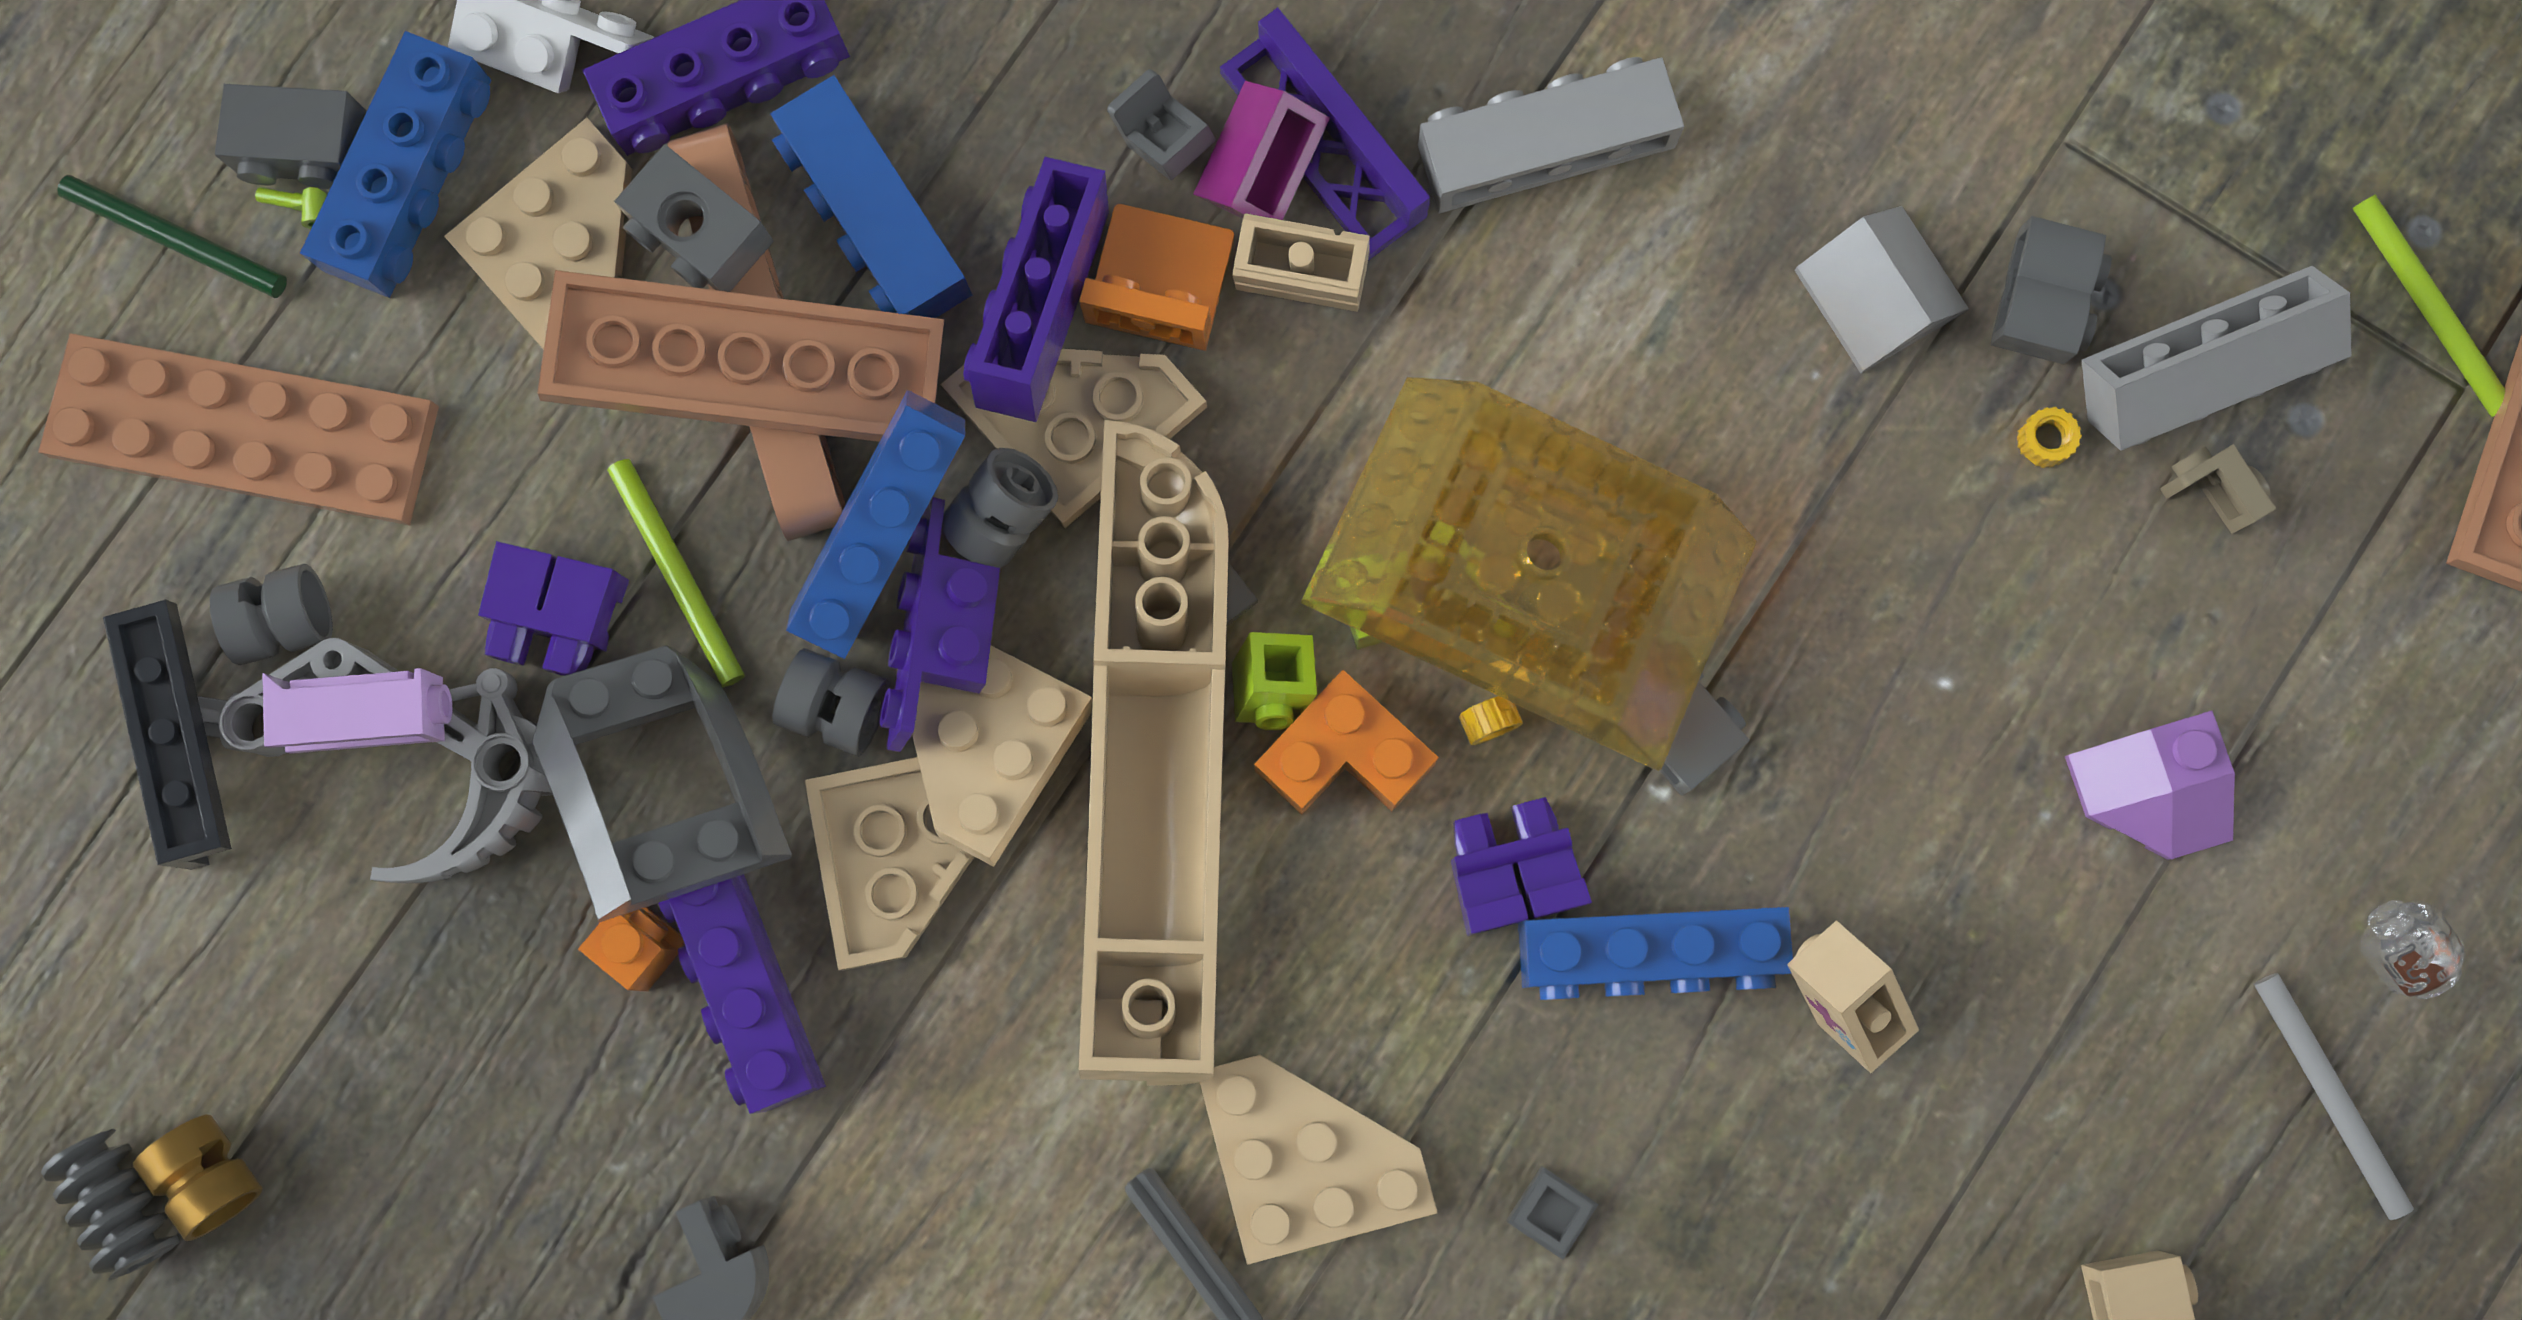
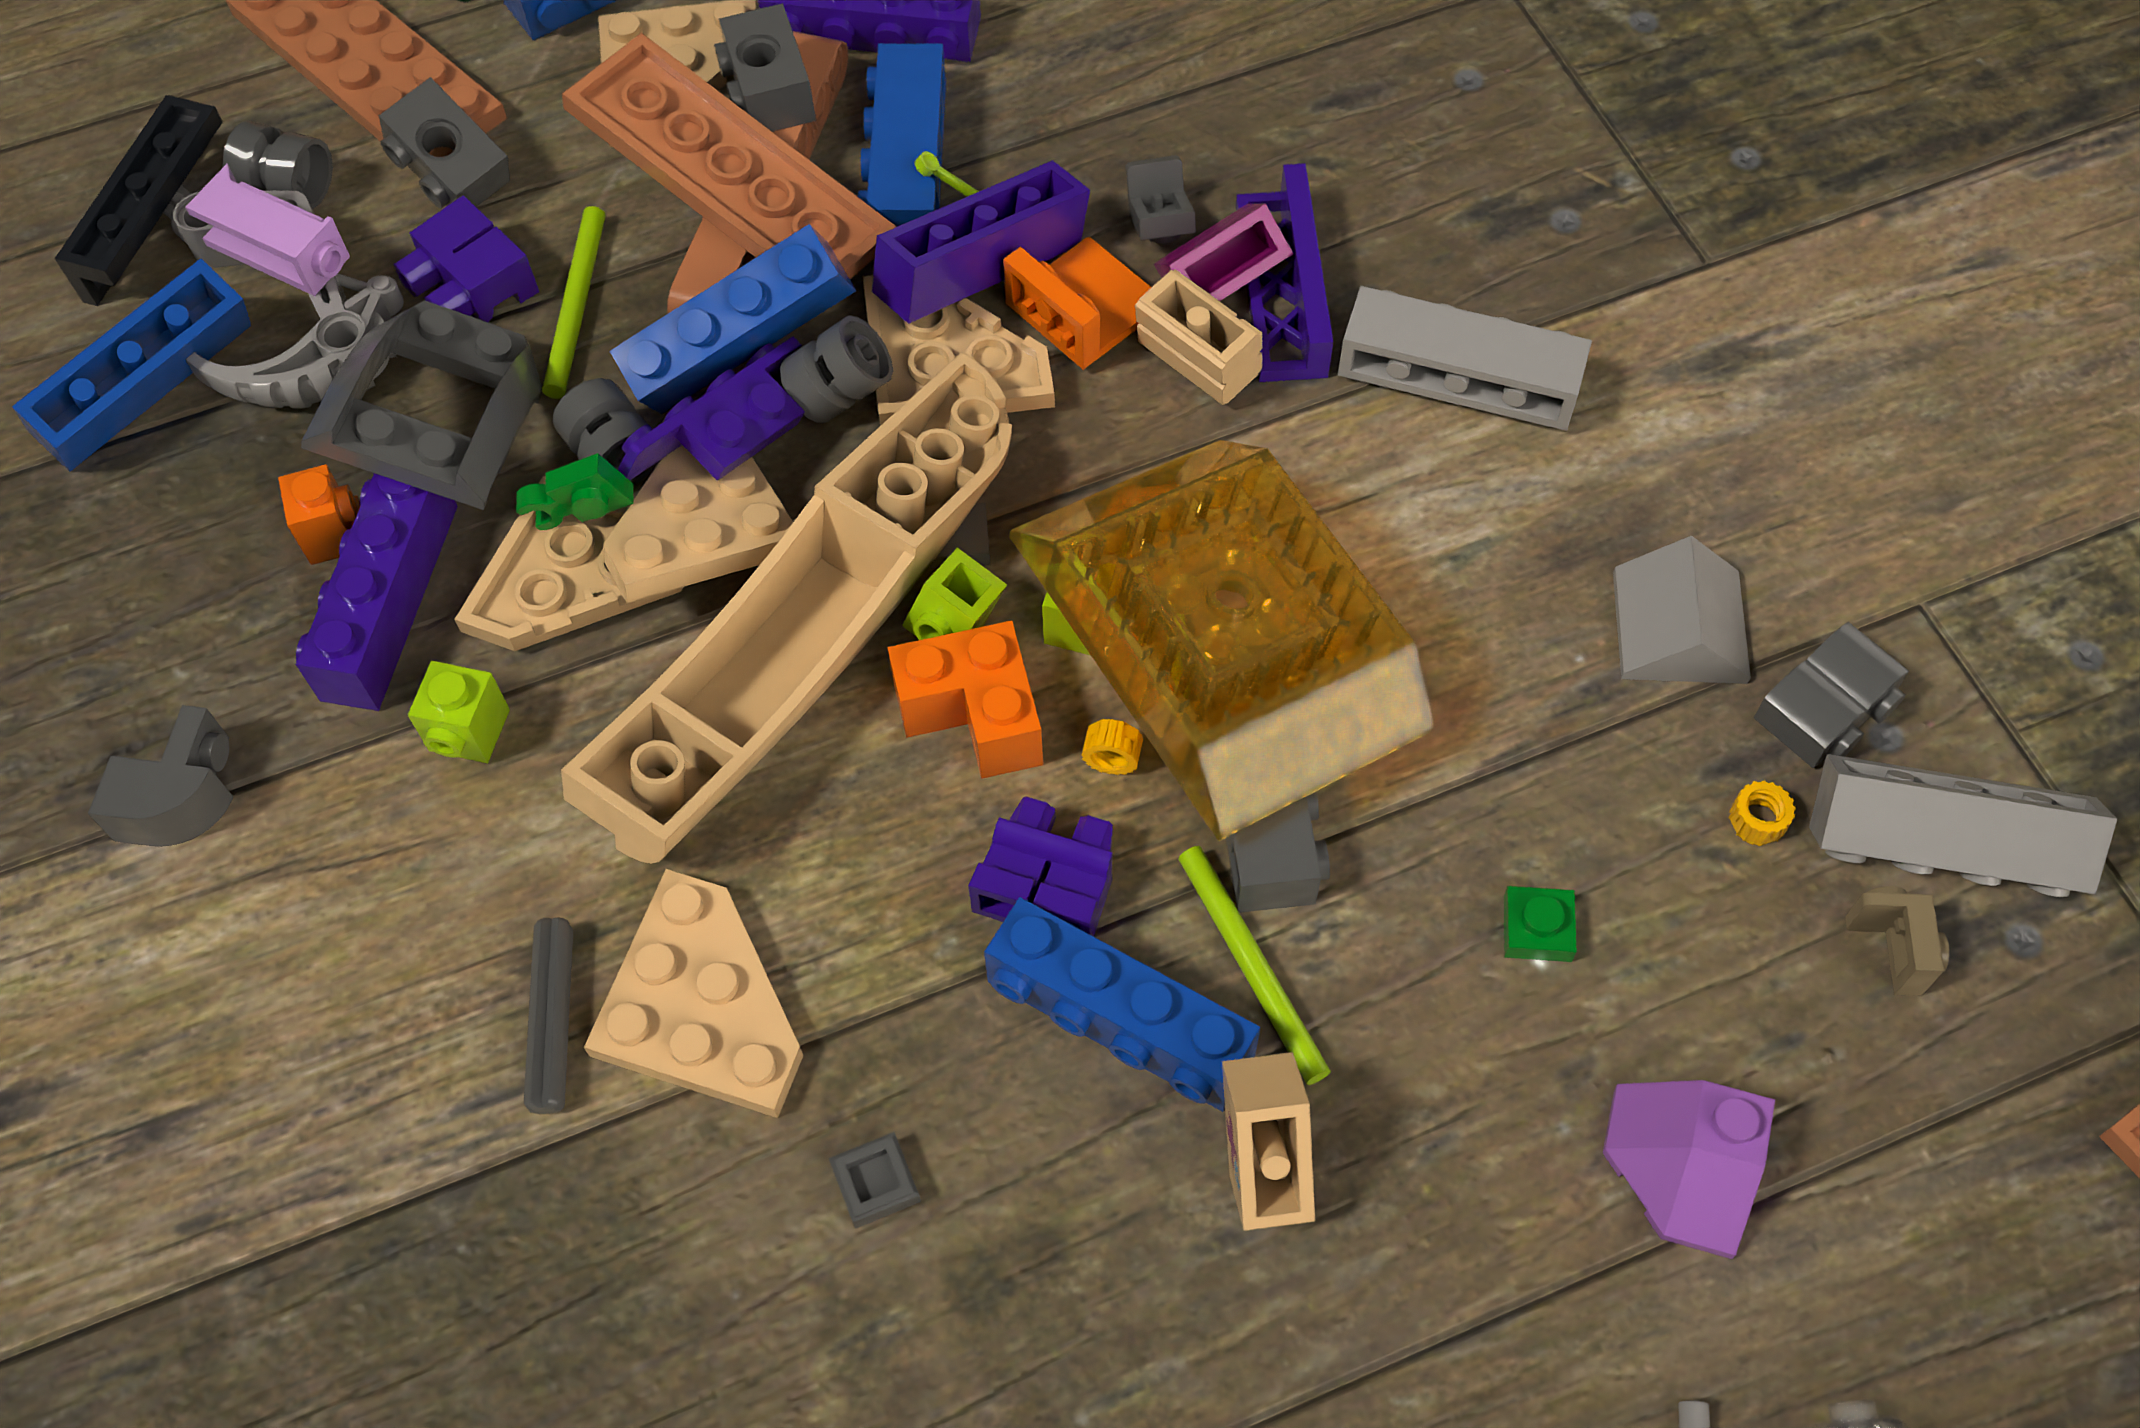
camera: 30 degrees right, 20 degrees down
(327, 918) = (133, 365): none -> blue brick
(397, 473) = (432, 120): none -> dark grey brick
(877, 786) = (581, 488): none -> green plate
(915, 1055) = (459, 712): none -> lime brick
(929, 233) = (928, 165): none -> lime hinge
(1726, 836) = (1254, 965): none -> lime bar
(1929, 653) = (1539, 924): none -> green plate

